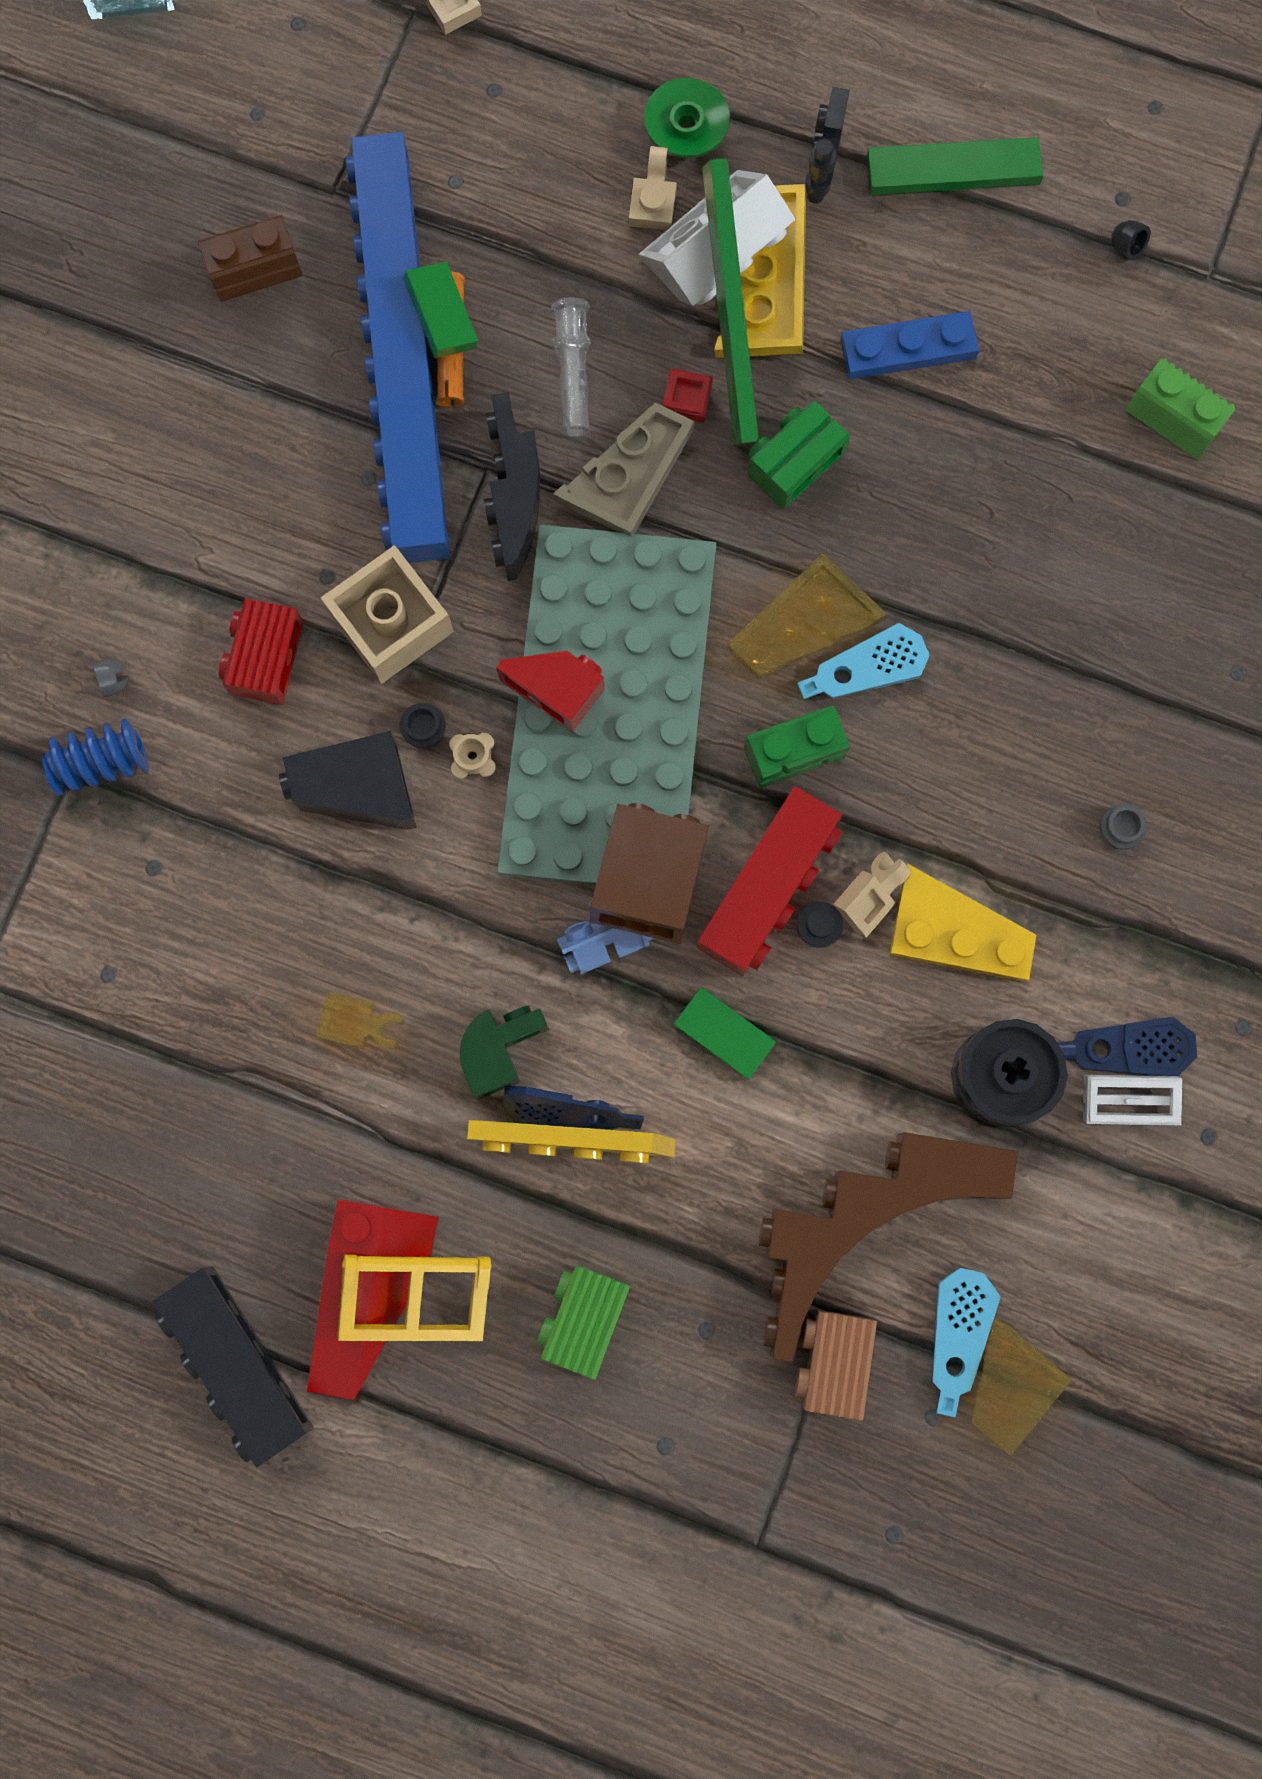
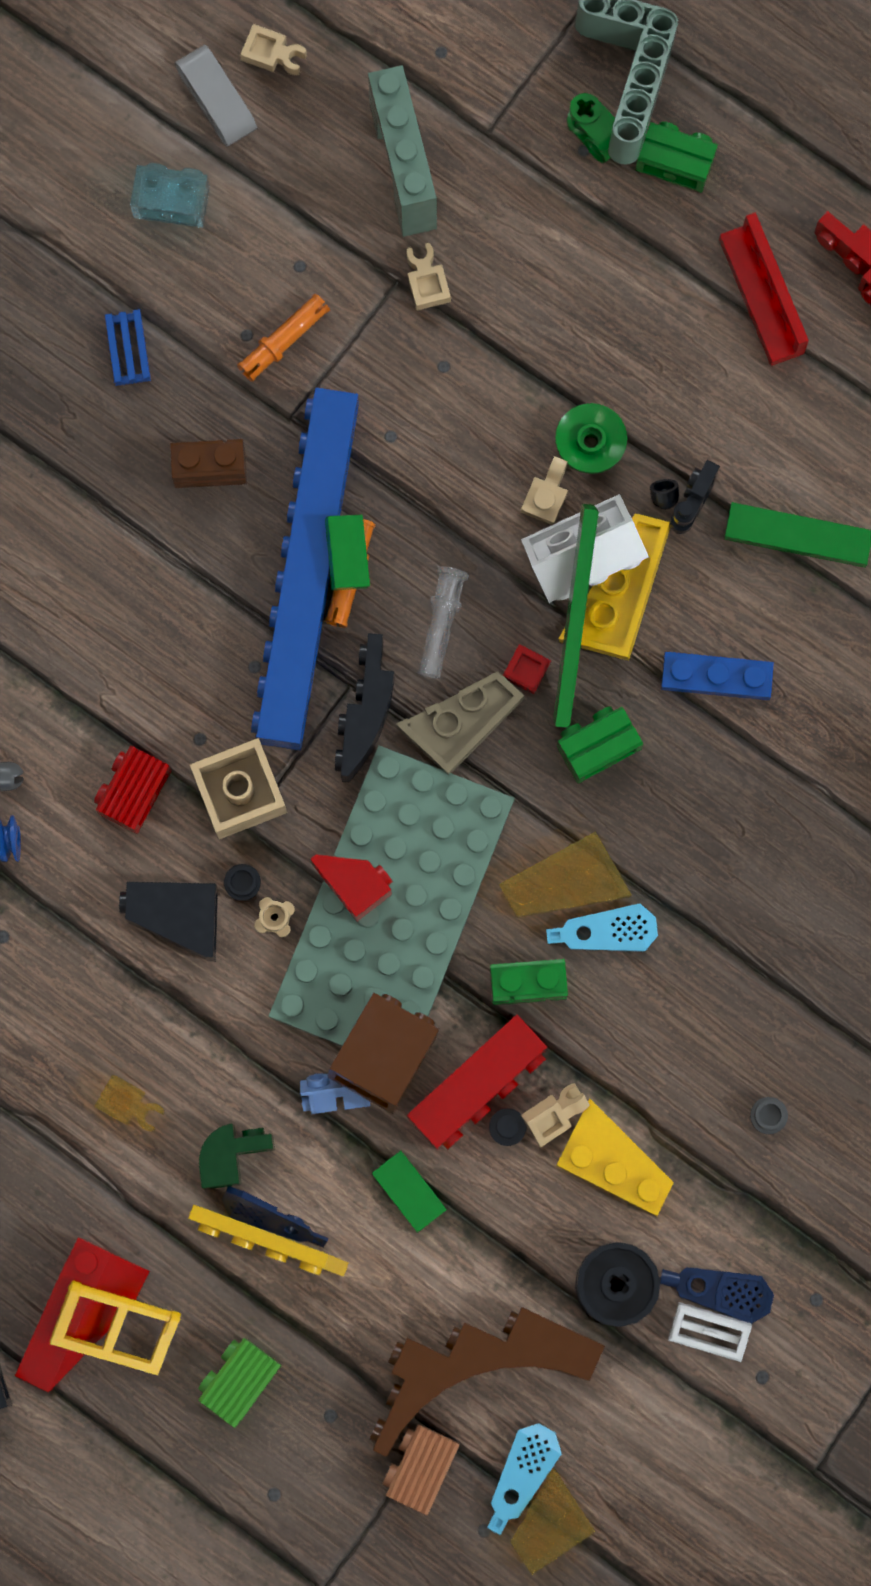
camera: 15 degrees right, 0 degrees up
(109, 131) = (123, 319): none -> blue tile
(290, 113) = (271, 348): none -> orange pin
(789, 159) = (664, 493): none -> black hinge

